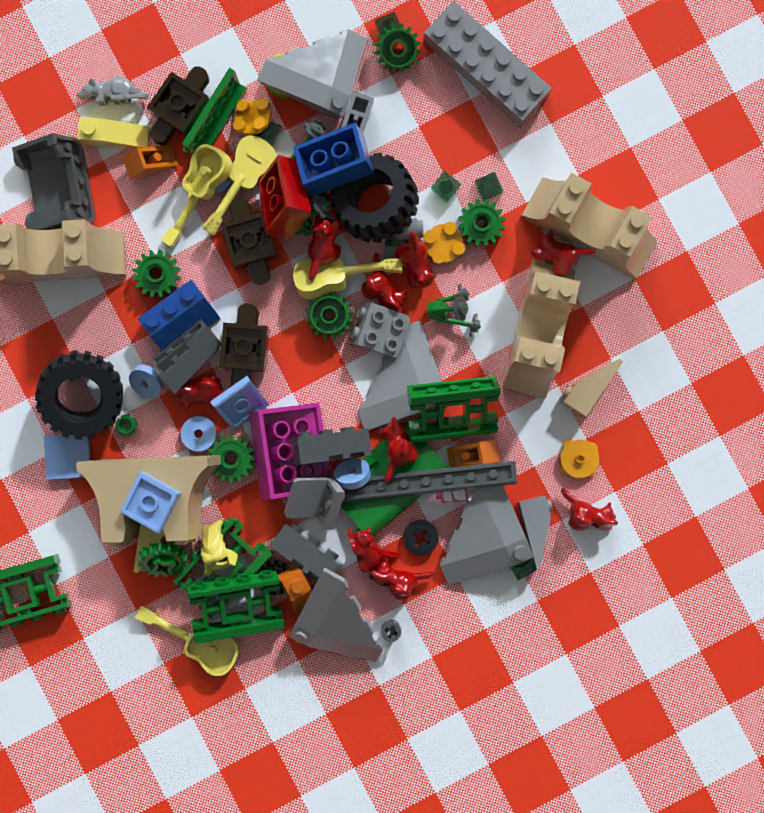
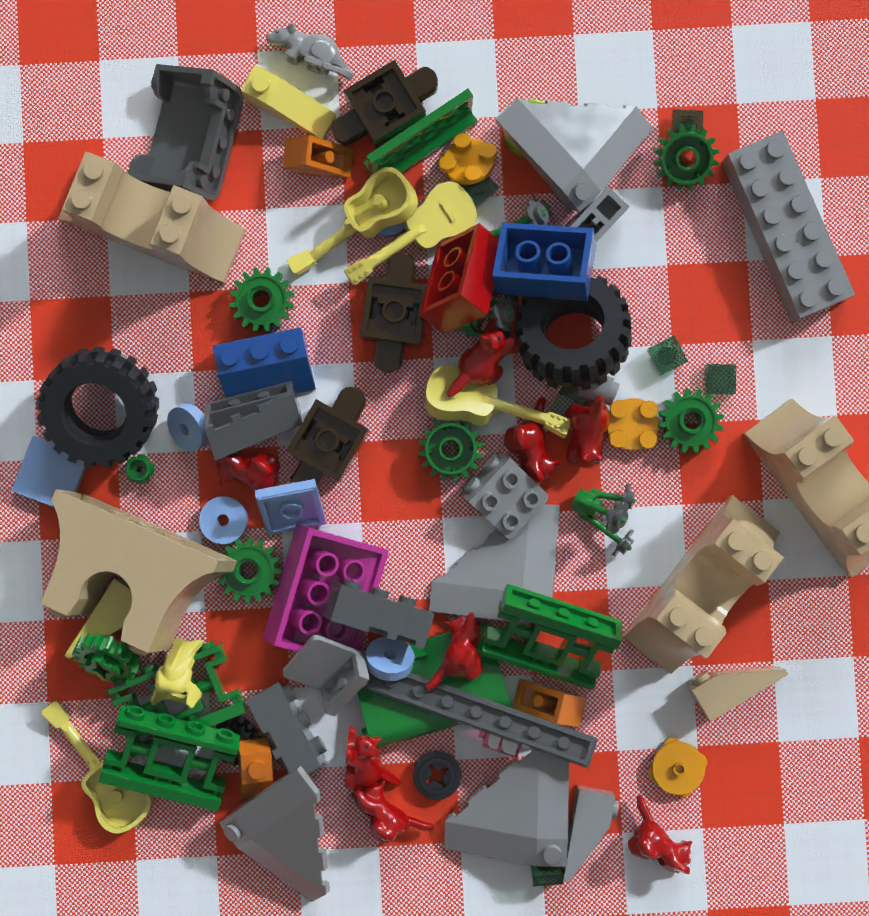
camera: 20 degrees right, 0 degrees up
(150, 502) = (122, 583): light blue tile -> none
(388, 624) = (347, 883): dark grey bush -> none
(559, 253) = (772, 507): red animal -> none

